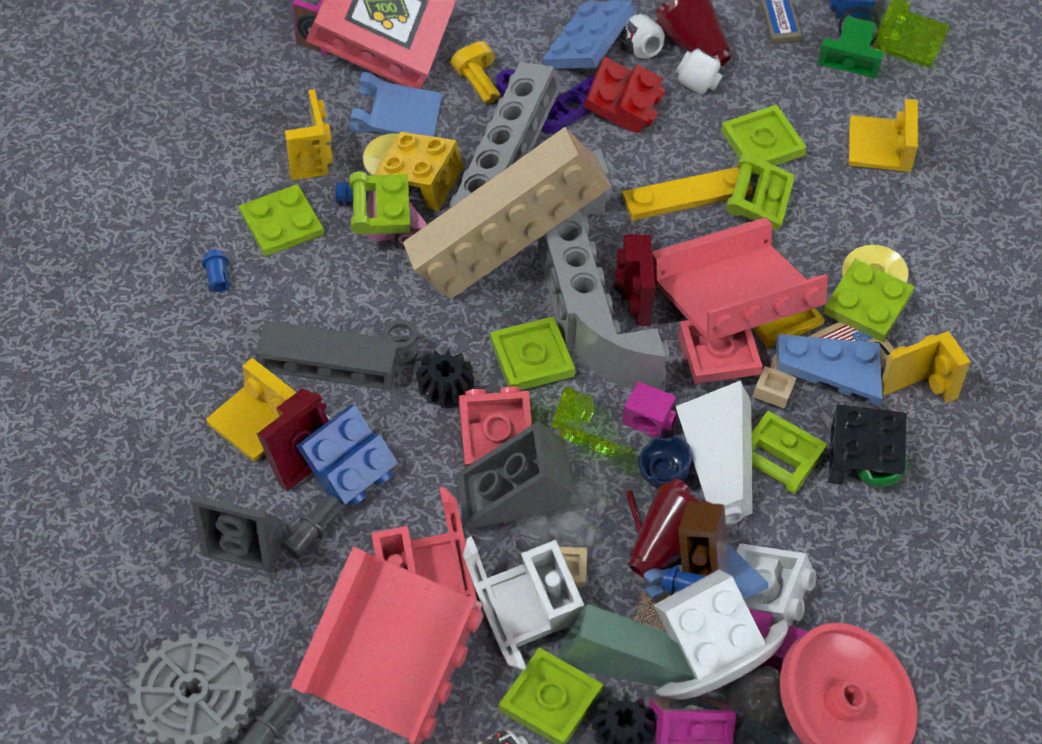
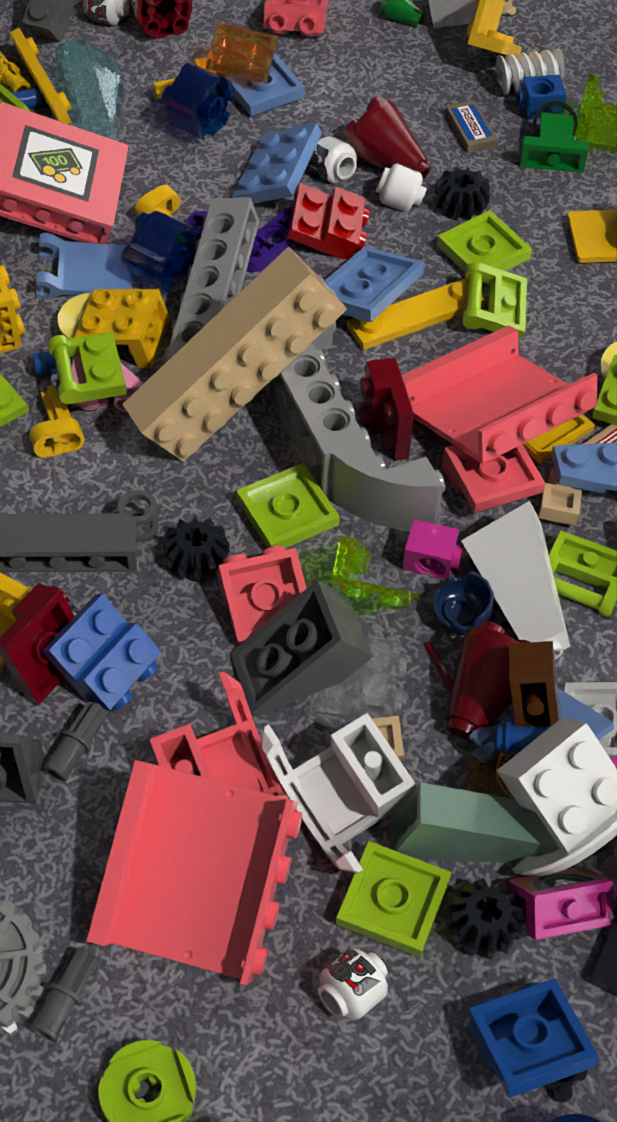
camera: 10 degrees left, 0 degrees up
(347, 254) = (58, 428): none -> yellow piece
(465, 102) = (160, 249): none -> clear blue brick
(650, 159) = (373, 281): none -> medium blue plate
(755, 84) = (462, 193): none -> black gear

